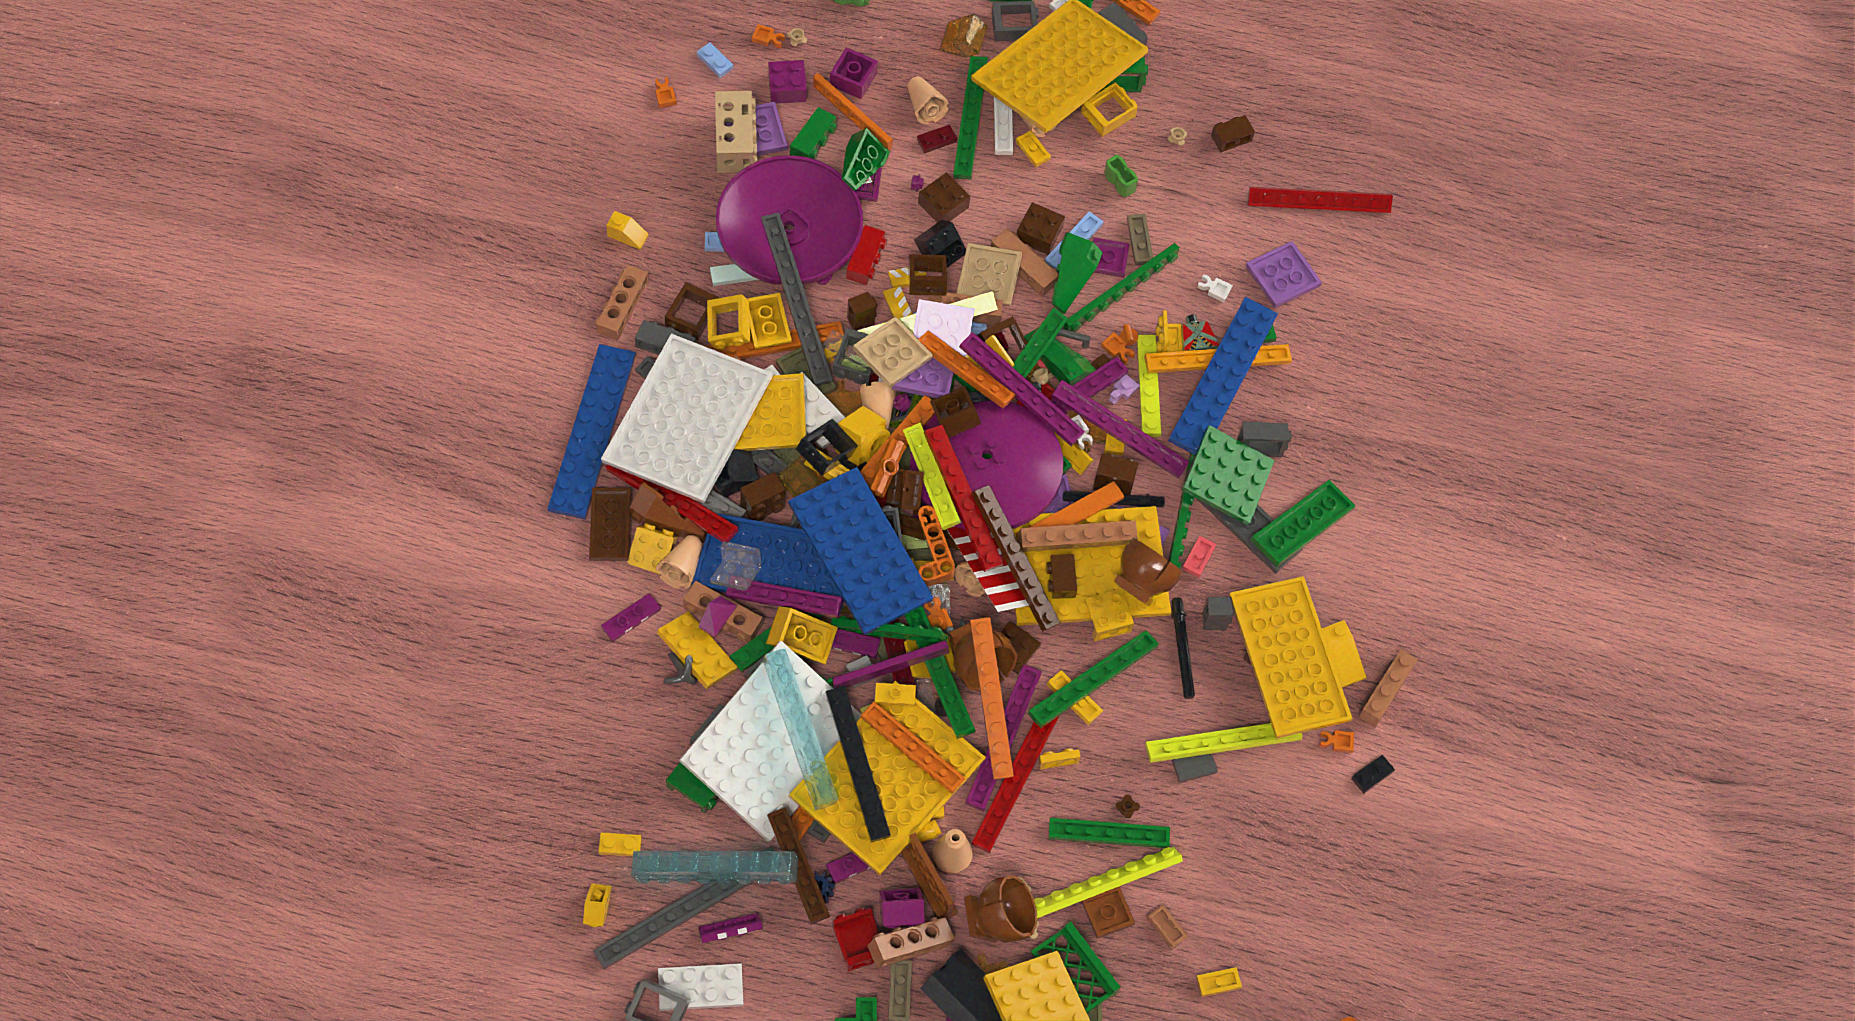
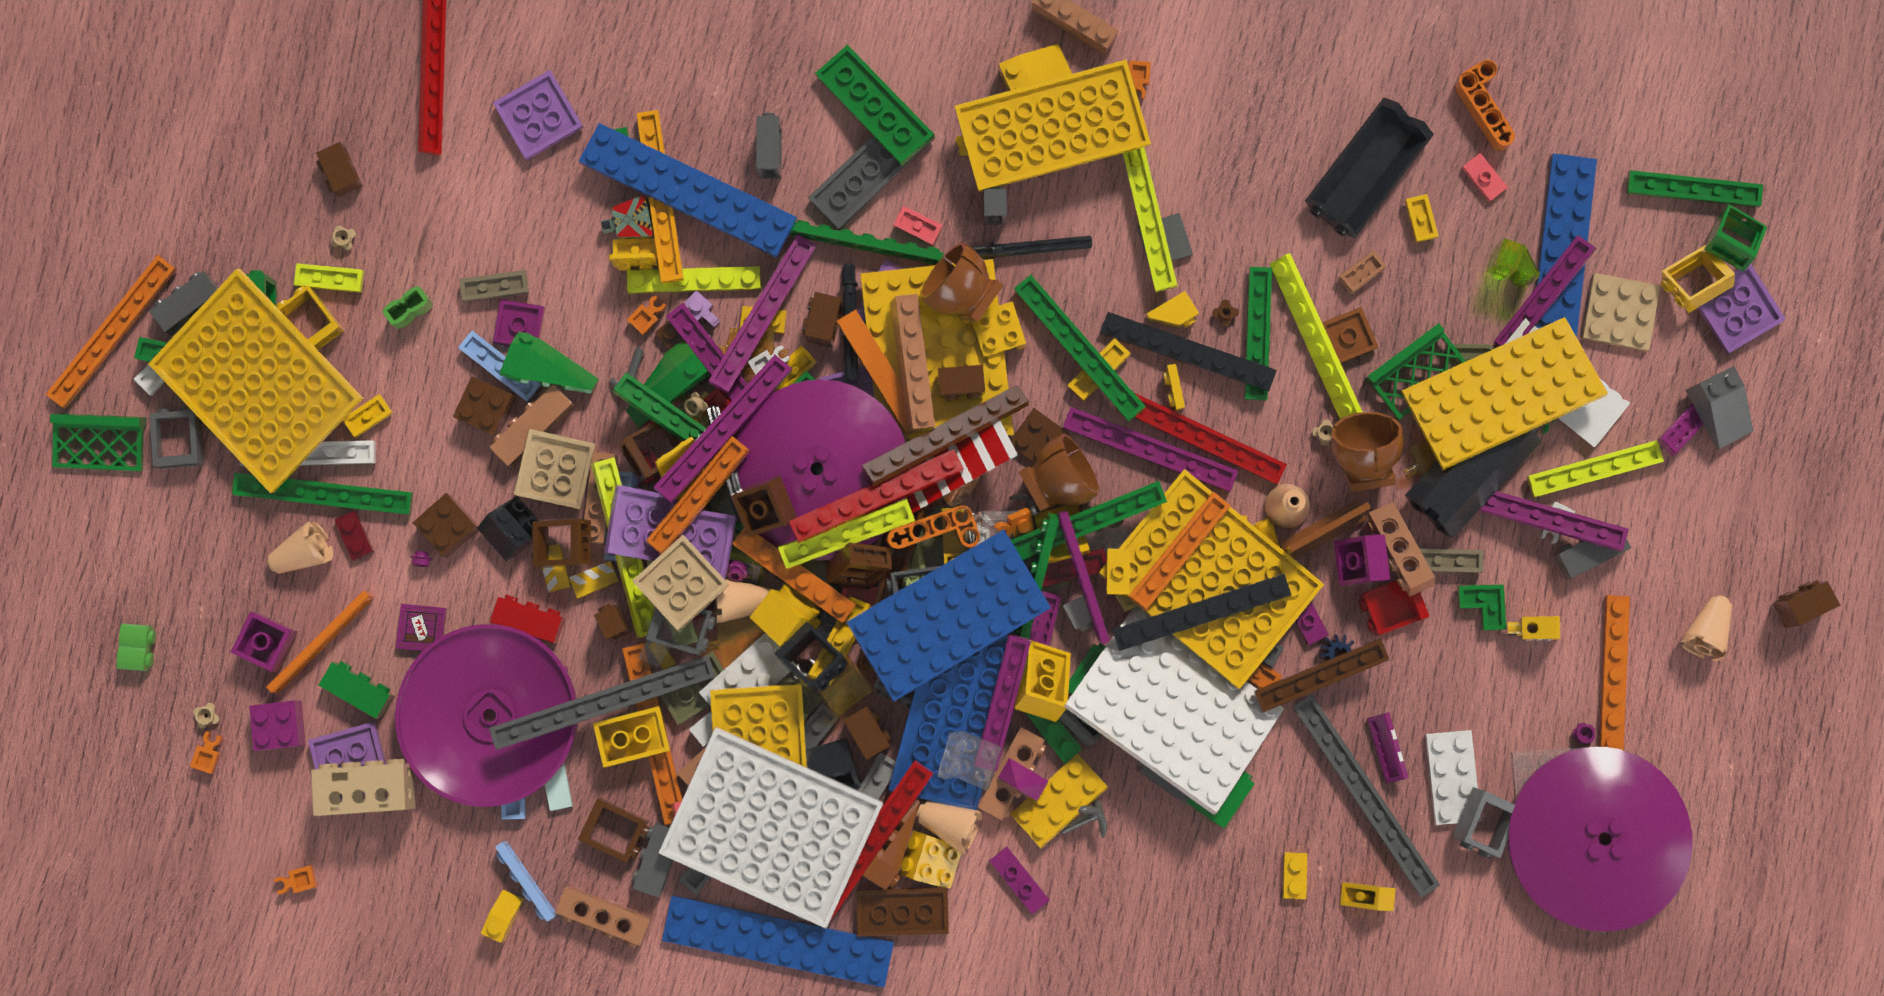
camera: 80 degrees left, 20 degrees up
(655, 248) = (519, 873): none -> light blue plate
(715, 60) = (243, 819): light blue plate -> none
(715, 866) = (1326, 768): clear light blue brick -> none
(724, 305) = (636, 765): yellow window -> none
(800, 729) = (1174, 678): clear light blue brick -> none
(862, 158) = (390, 626): green wedge -> none
(890, 457) = (825, 582): orange piece -> none
(964, 36) = (202, 503): clear yellow slope -> none
(991, 698) = (1123, 462): orange plate -> none
(1091, 772) = (1188, 351): none -> black plate
(1126, 285) = (560, 301): green plate -> none
(1128, 762) = (1175, 312): none -> yellow slope
(1129, 334) = (629, 301): orange plate -> none
(1144, 125) = (329, 278): none -> neon yellow plate
(1217, 289) = (561, 194): white plate -> none
(1227, 475) = (820, 189): plate -> none
(1263, 934) = (1368, 168): none -> black panel
(1373, 774) = (1173, 42): black plate -> none

